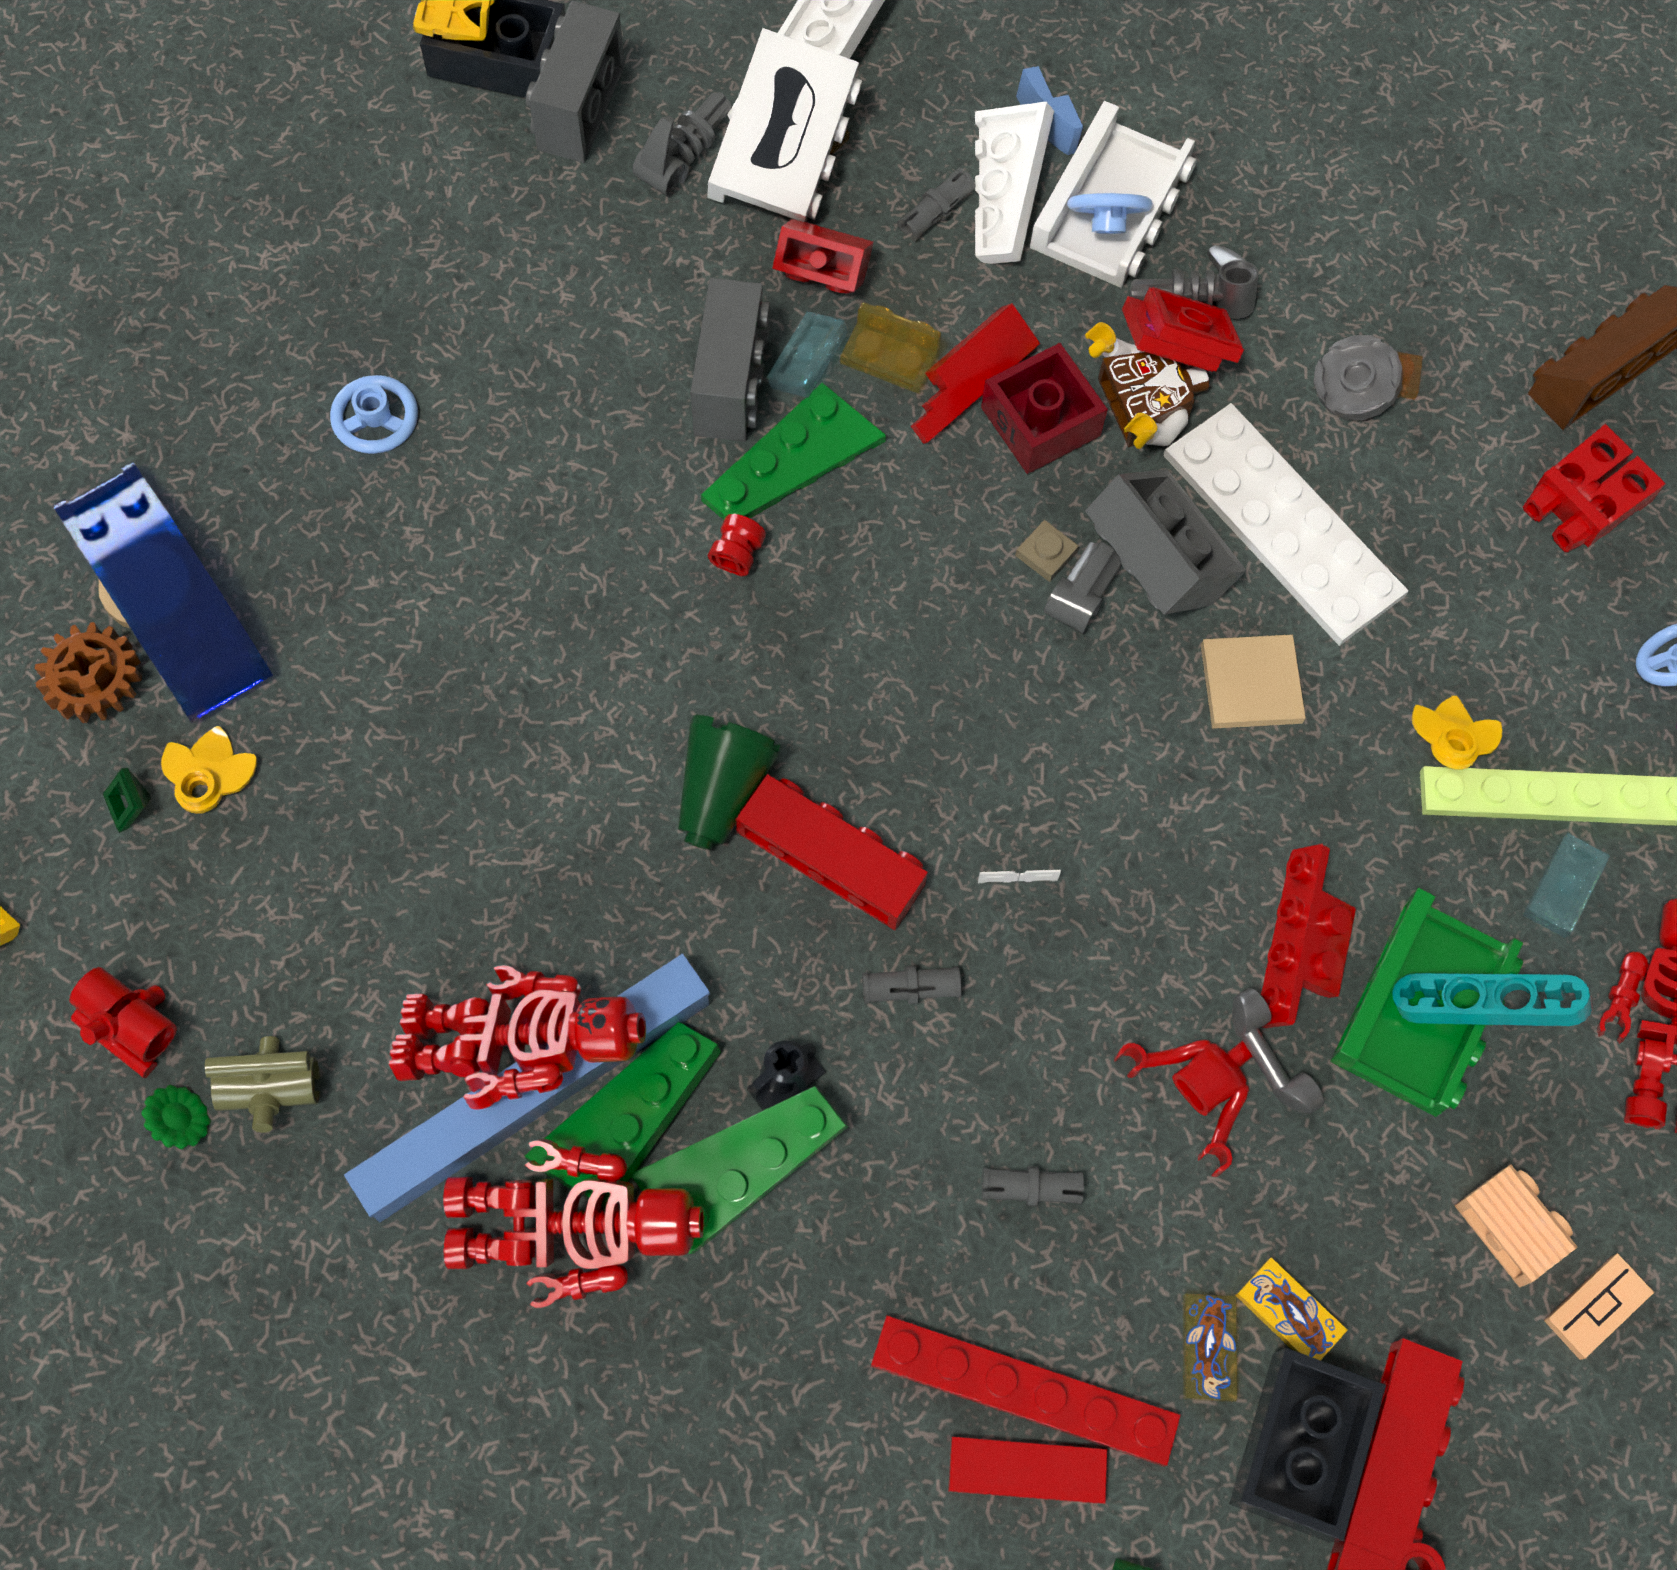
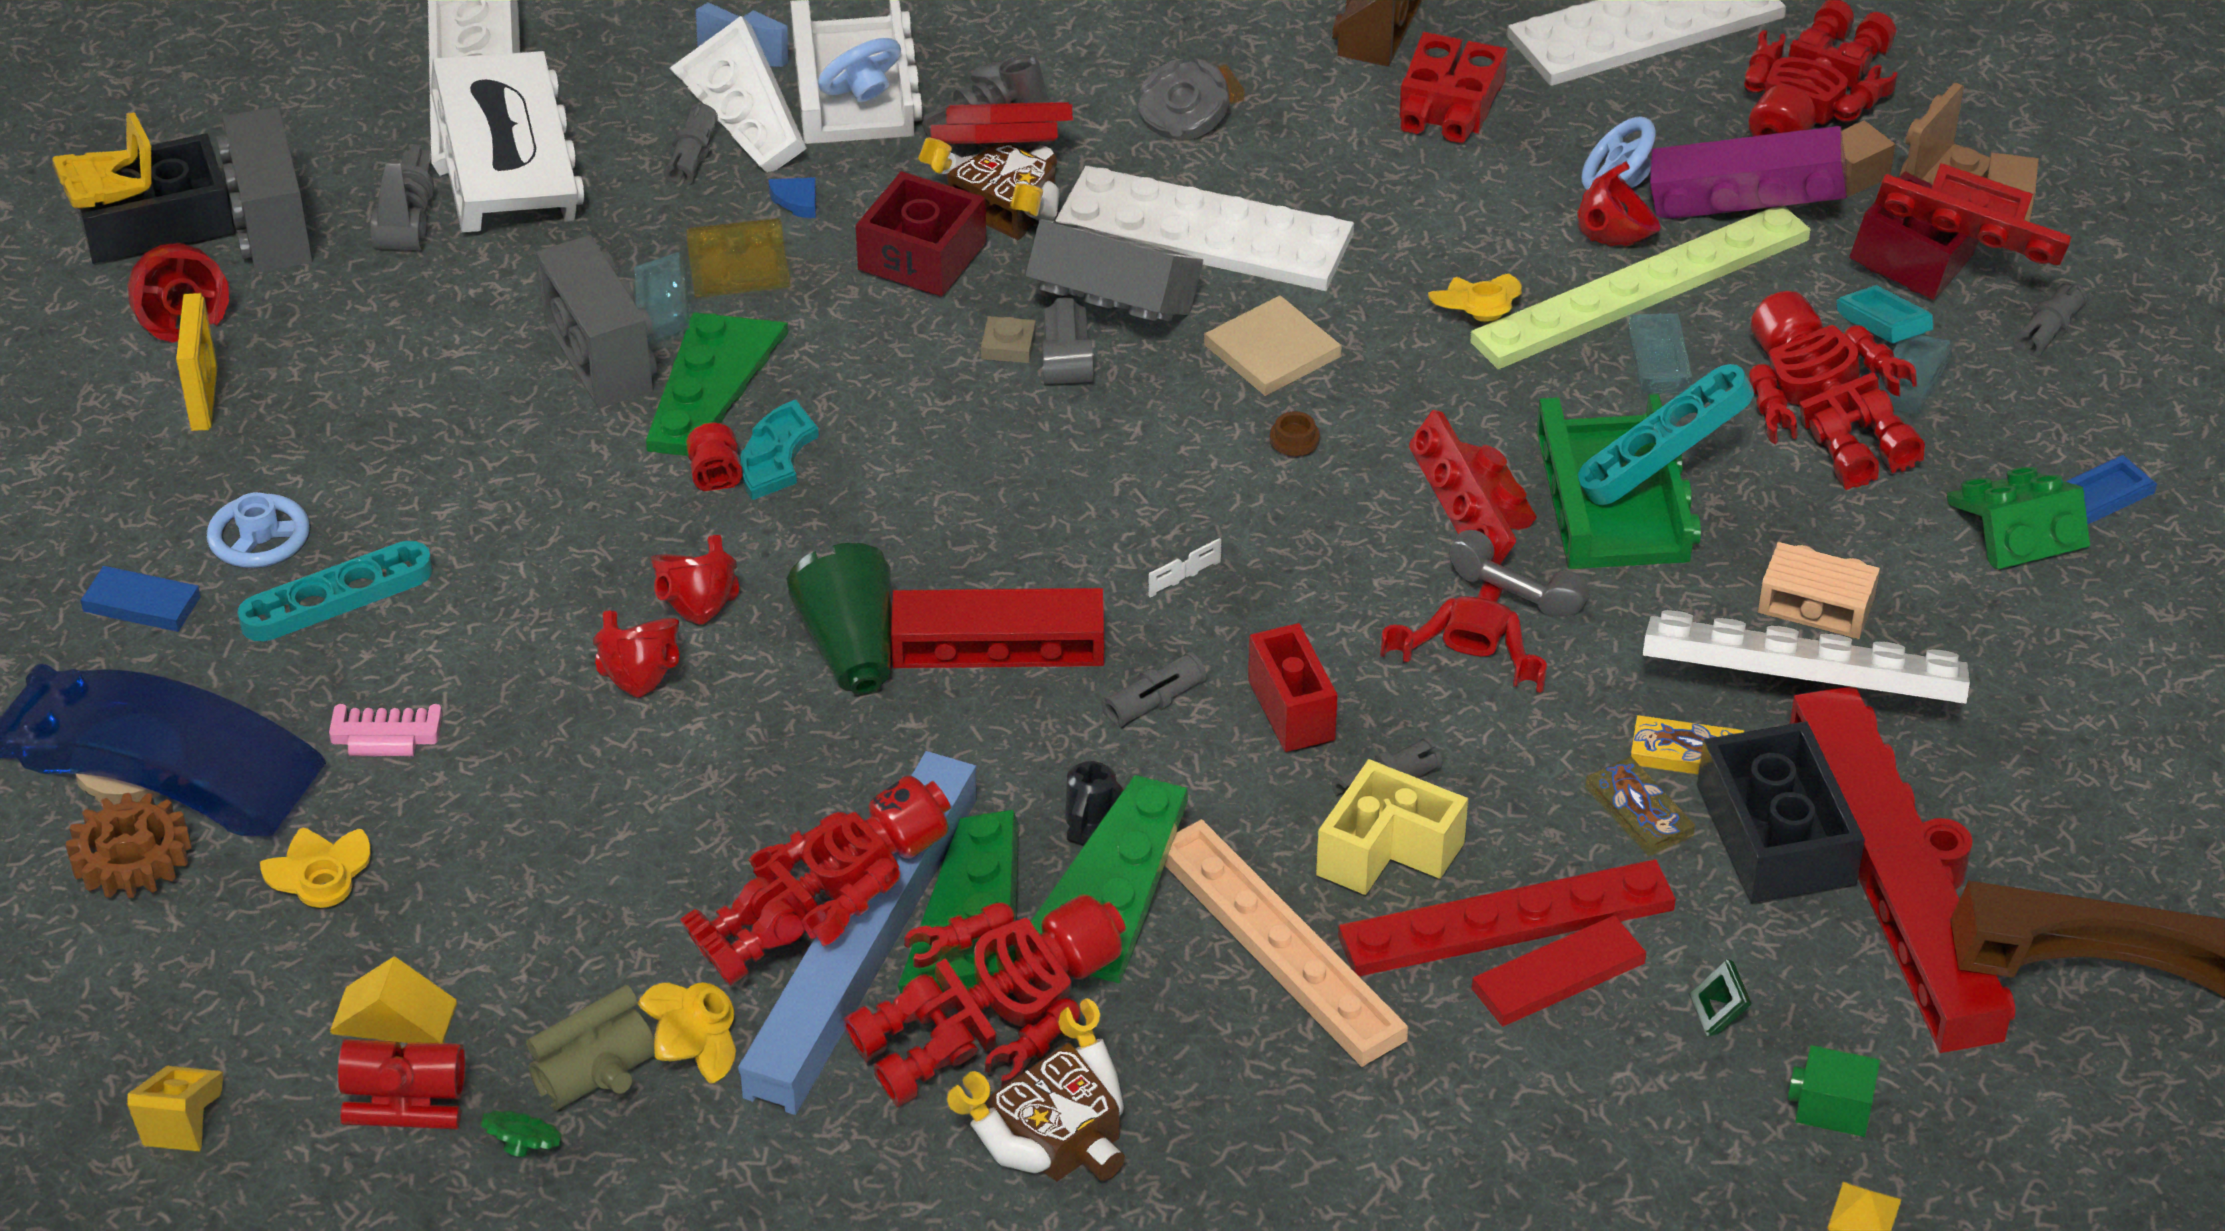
camera: 30 degrees left, 25 degrees down
(136, 796) = (251, 911): dark green slope -> none
(169, 944) = (394, 1006): none -> yellow slope
(251, 433) = (140, 598): none -> blue tile
(330, 673) = (384, 737): none -> bright pink piece
(343, 1103) = (689, 1028): none -> yellow plate
(388, 503) = (333, 586): none -> teal beam
(415, 232) = (197, 362): none -> yellow tile
(447, 140) = (162, 280): none -> red cylinder
(547, 1362) = (1056, 1111): none -> torso
(554, 714) = (638, 655): none -> red helmet
(636, 663) = (697, 584): none -> red helmet
(793, 556) = (772, 449): none -> teal tile
(822, 256) = (620, 216): red brick -> none
(832, 1306) = (1285, 945): none -> light nougat plate
(962, 372) = (828, 240): red piece -> none
(983, 299) = (795, 195): none -> blue tile
(986, 1242) = (1389, 818): none -> light yellow brick
(1008, 1062) = (1292, 687): none -> red brick
(1202, 789) = (1294, 434): none -> reddish brown plate
(1449, 1301) = (1827, 660): none -> white plate
(1599, 1306) = (1933, 612): light nougat tile -> none
(1625, 716) = (1604, 217): none -> red helmet

